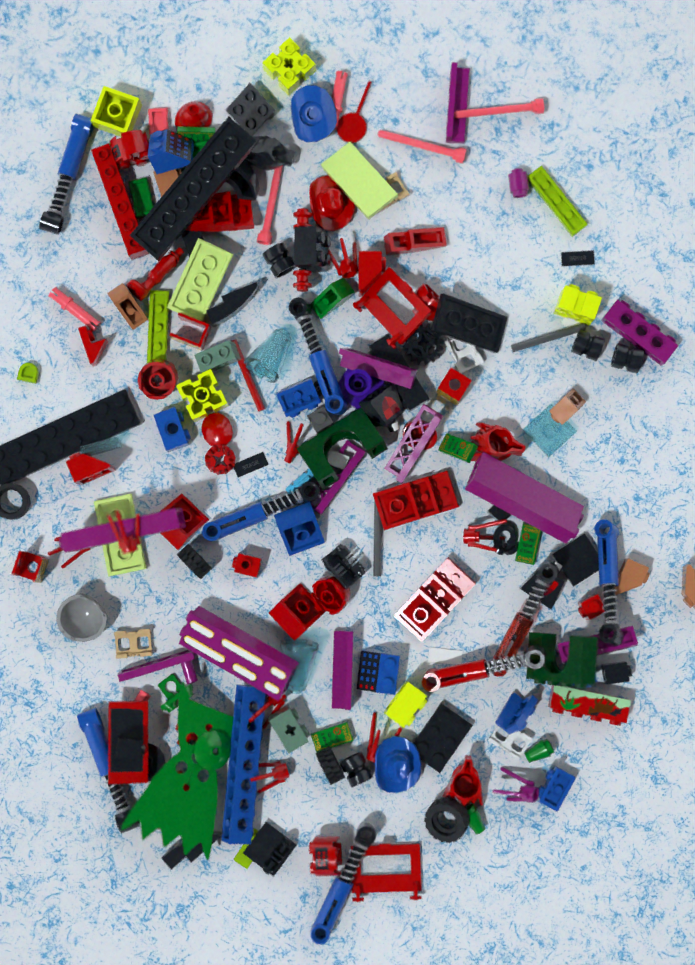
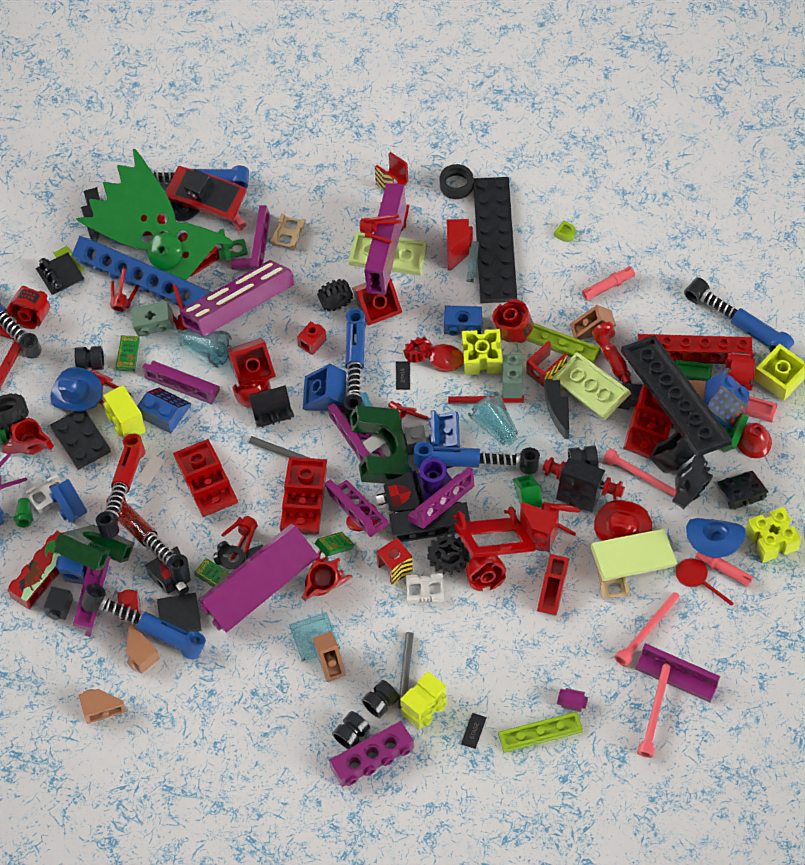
camera: 115 degrees right, 25 degrees down
(81, 618) = (329, 195): light grey cylinder -> none
(93, 350) = (568, 282): red slope -> none
(330, 765) = (104, 335): black tyre -> none
(469, 323) = (449, 595): black tile -> none

